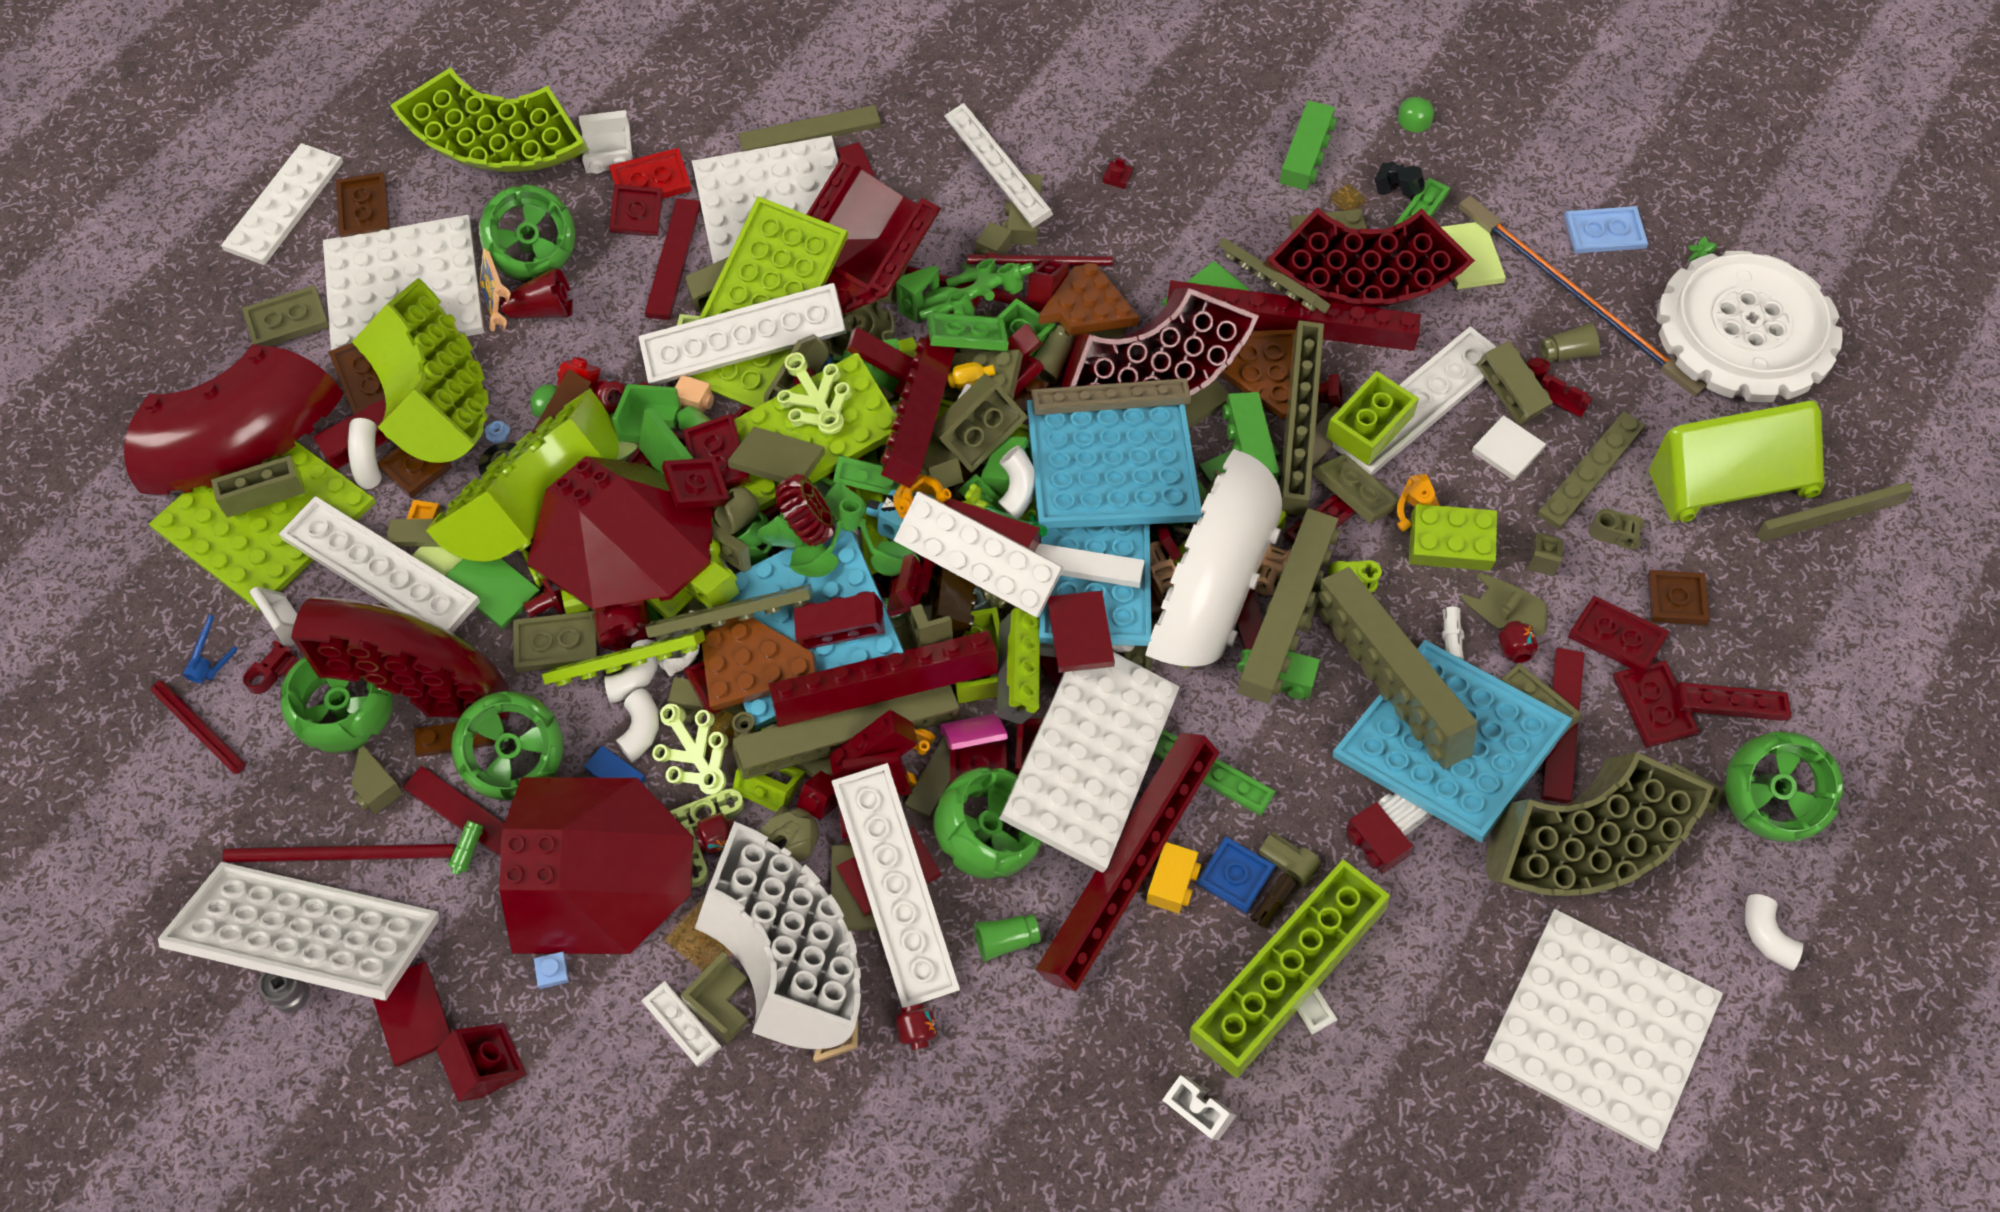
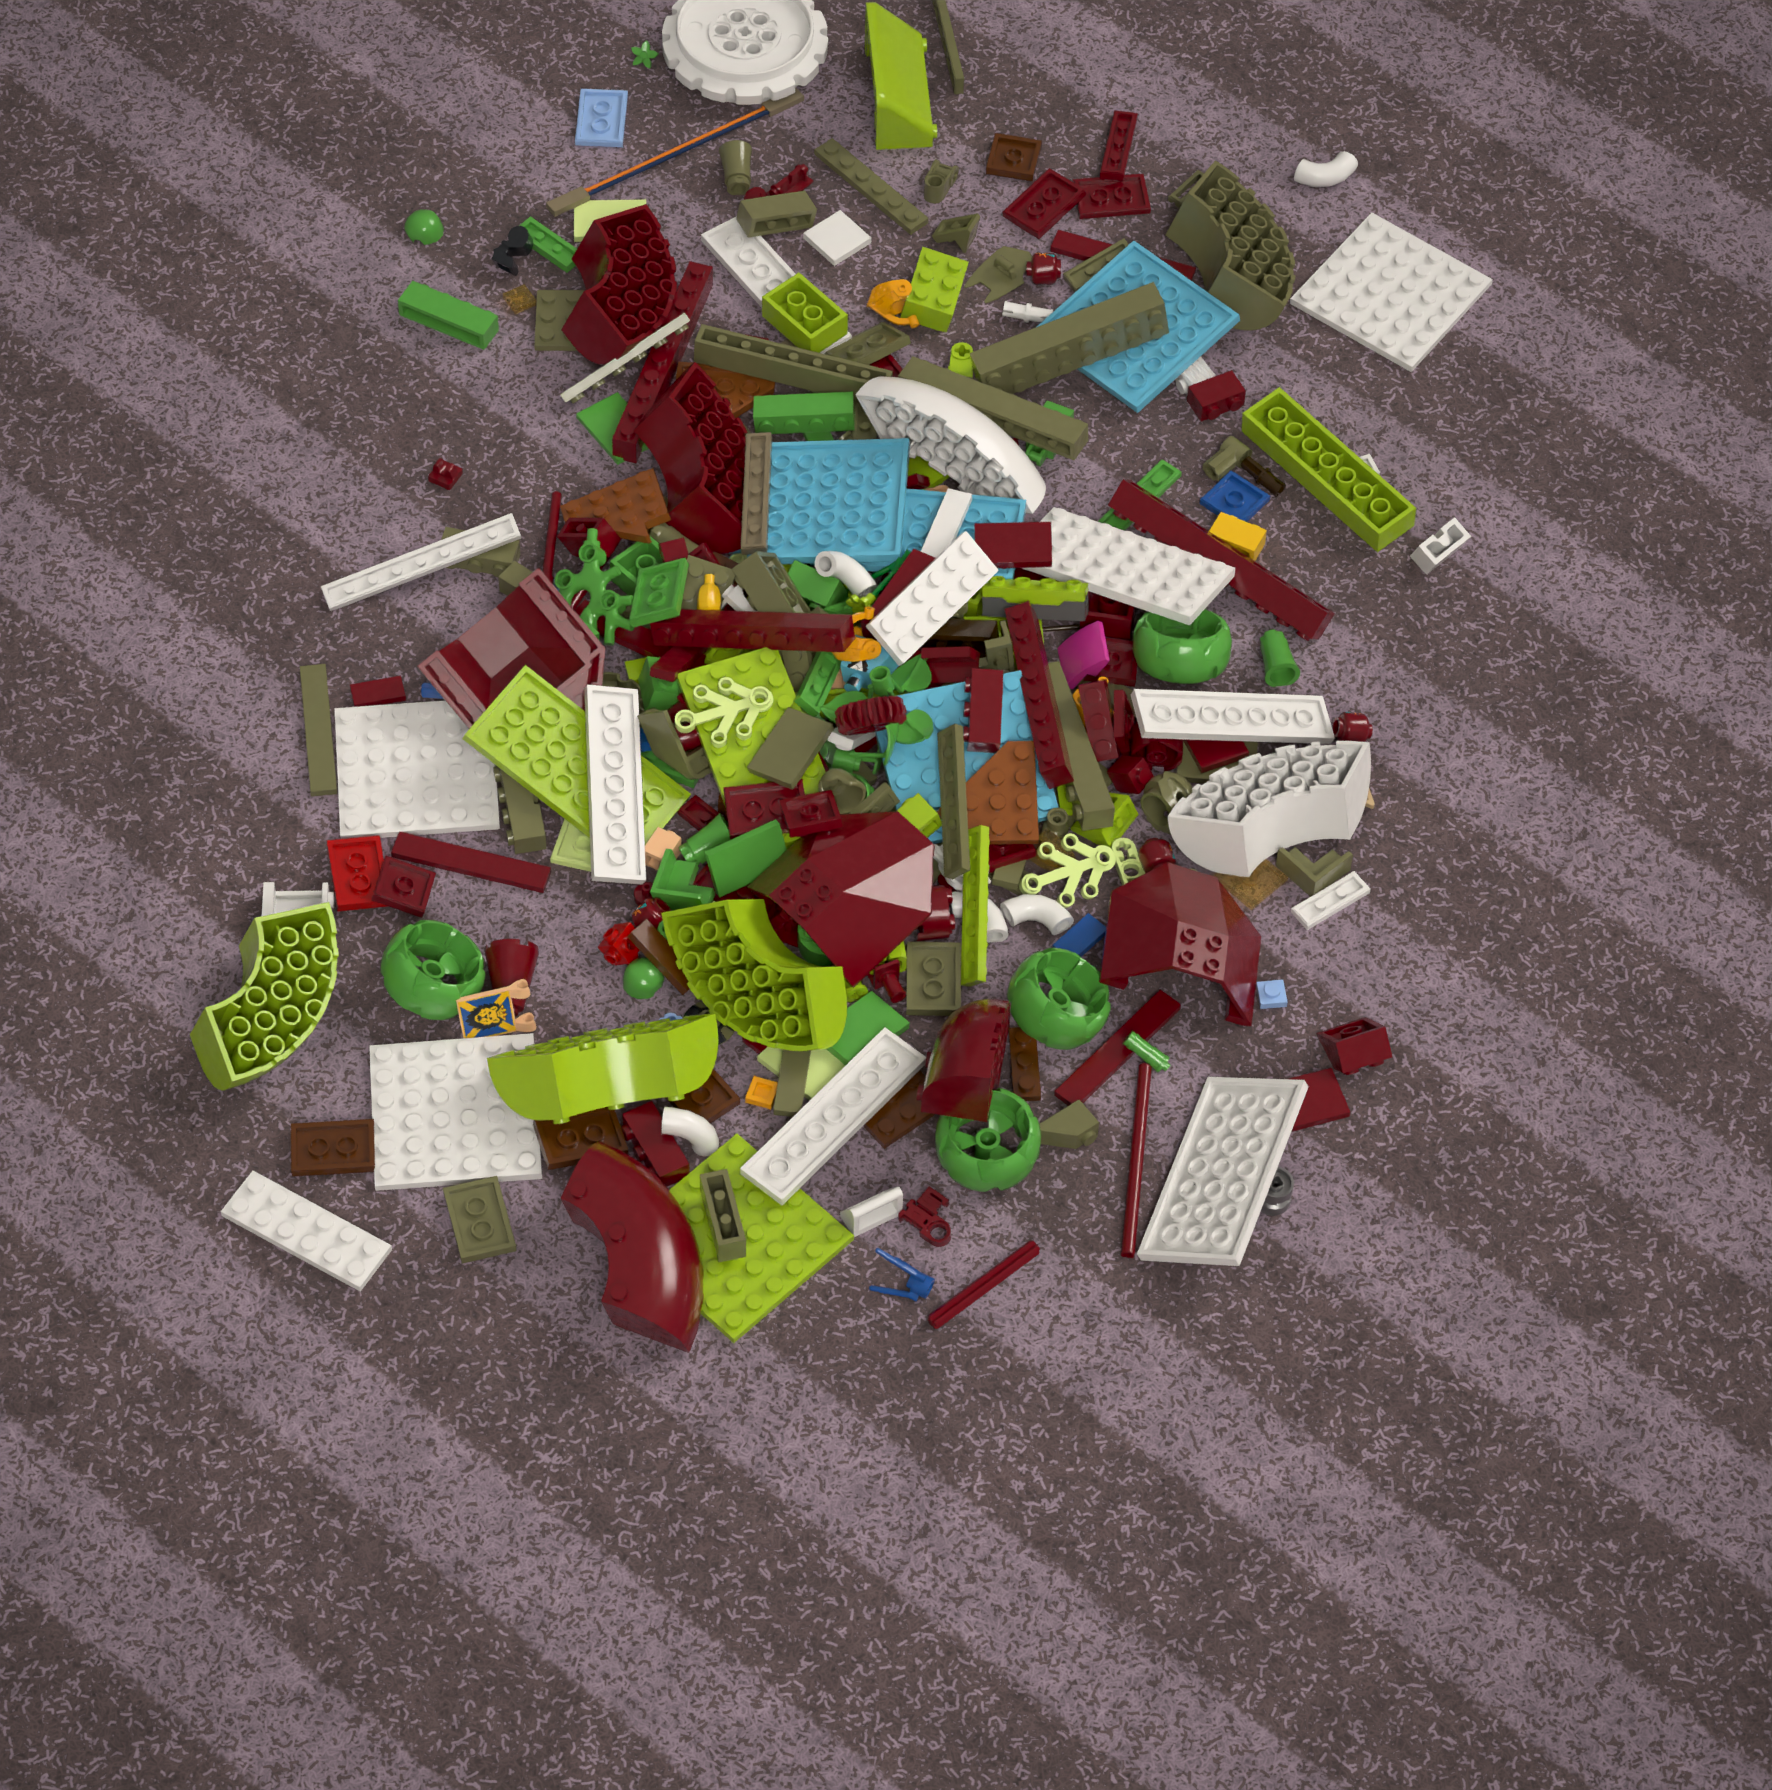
camera: 85 degrees left, 5 degrees down
(1812, 811) = (1199, 137): bright green wheel -> none

